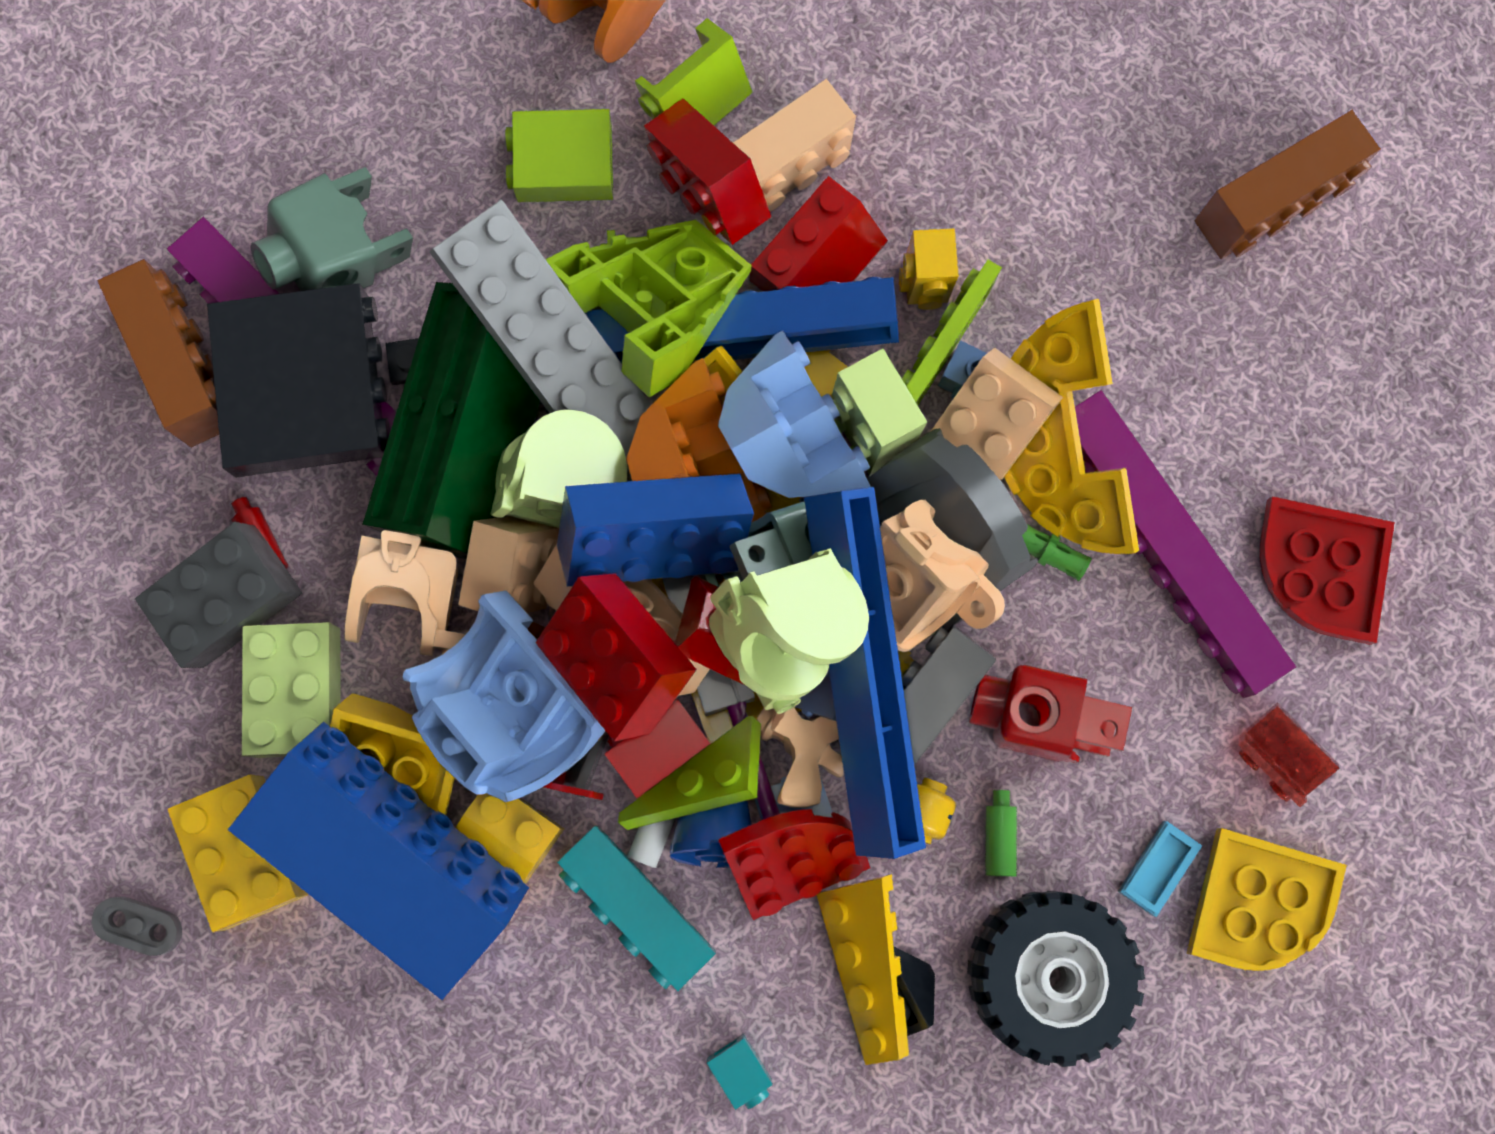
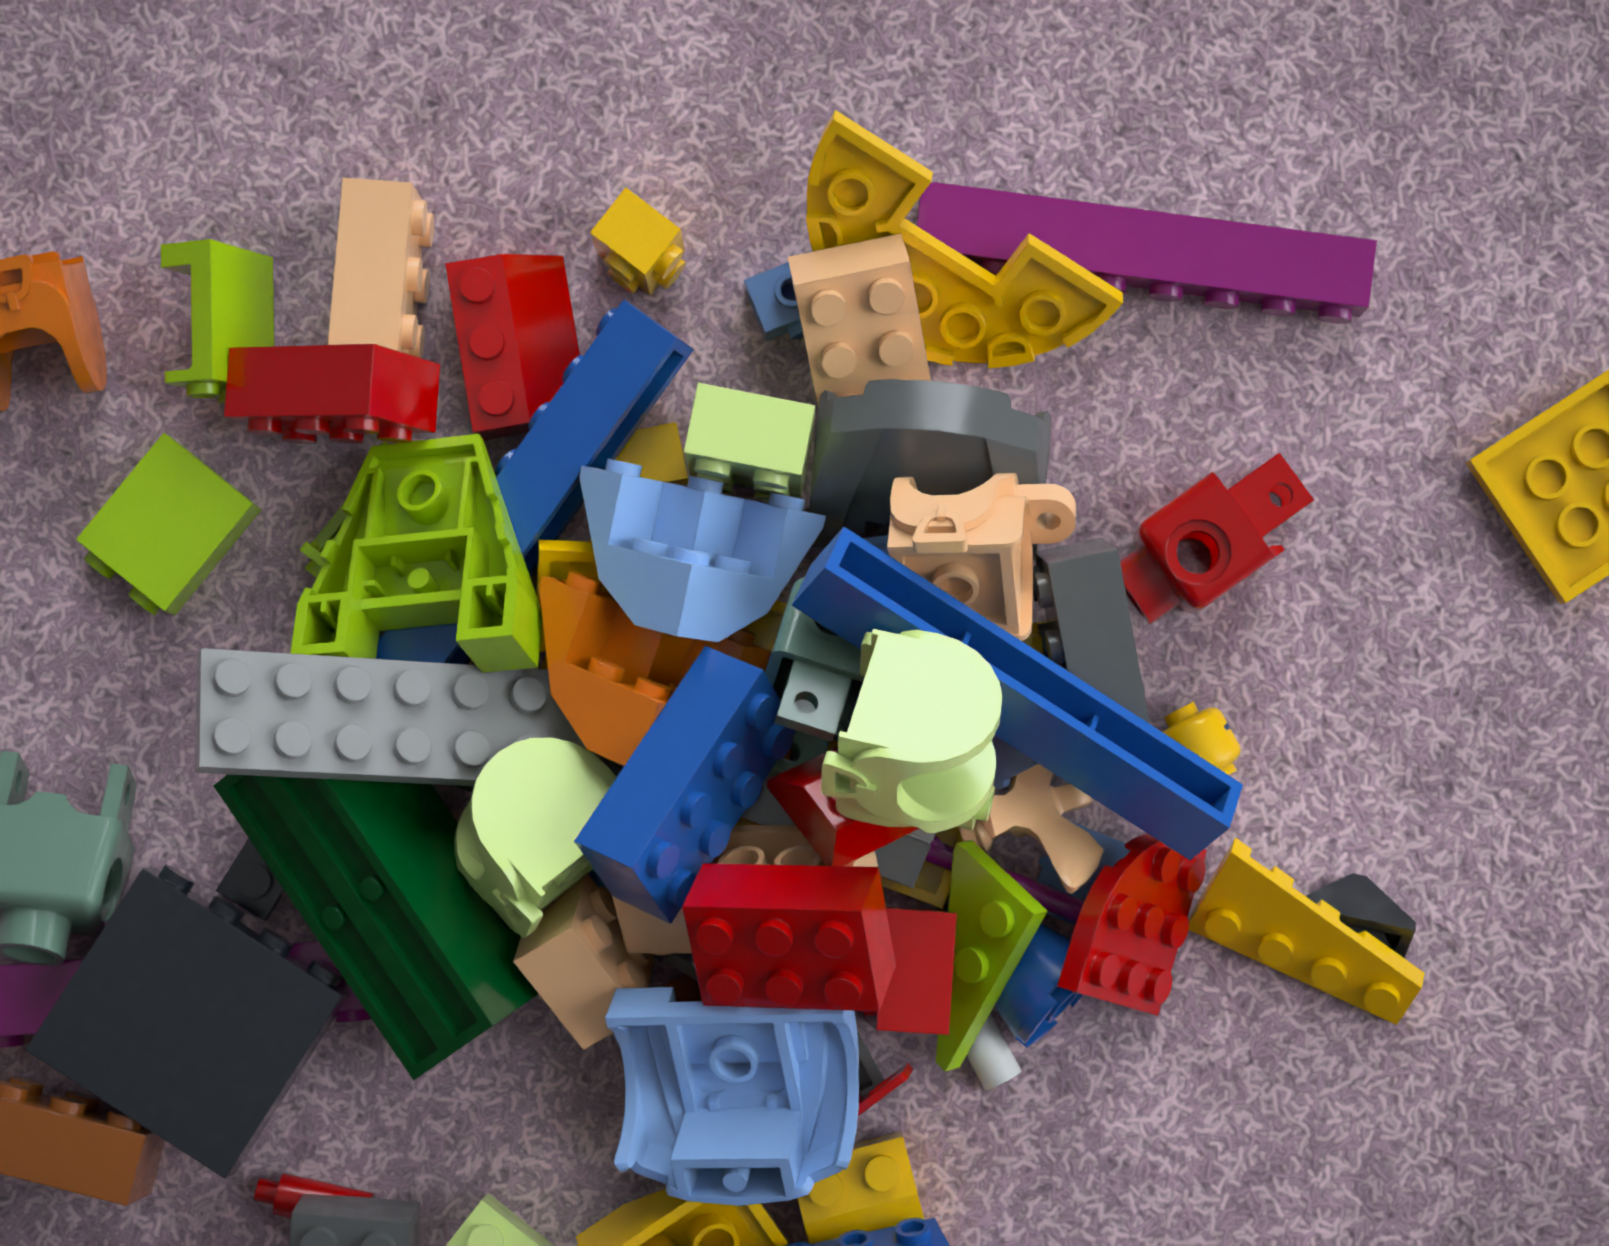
camera: 45 degrees left, 5 degrees up
(405, 576) = (507, 1076): light nougat animal -> none
(636, 907) = (1047, 1125): teal brick -> none
(740, 1073) = (1299, 1158): teal brick -> none
(950, 329) = (725, 281): lime plate -> none
(1001, 836) = (1288, 689): bright green cylinder -> none
(1055, 553) = (1046, 378): bright green pin -> none
(1094, 987) = (1525, 752): black wheel -> none
(1160, 868) = (1456, 556): medium azure tile -> none
(1286, 755) = (1453, 328): clear red bracket -> none
(1326, 567) = (1301, 111): red plate -> none

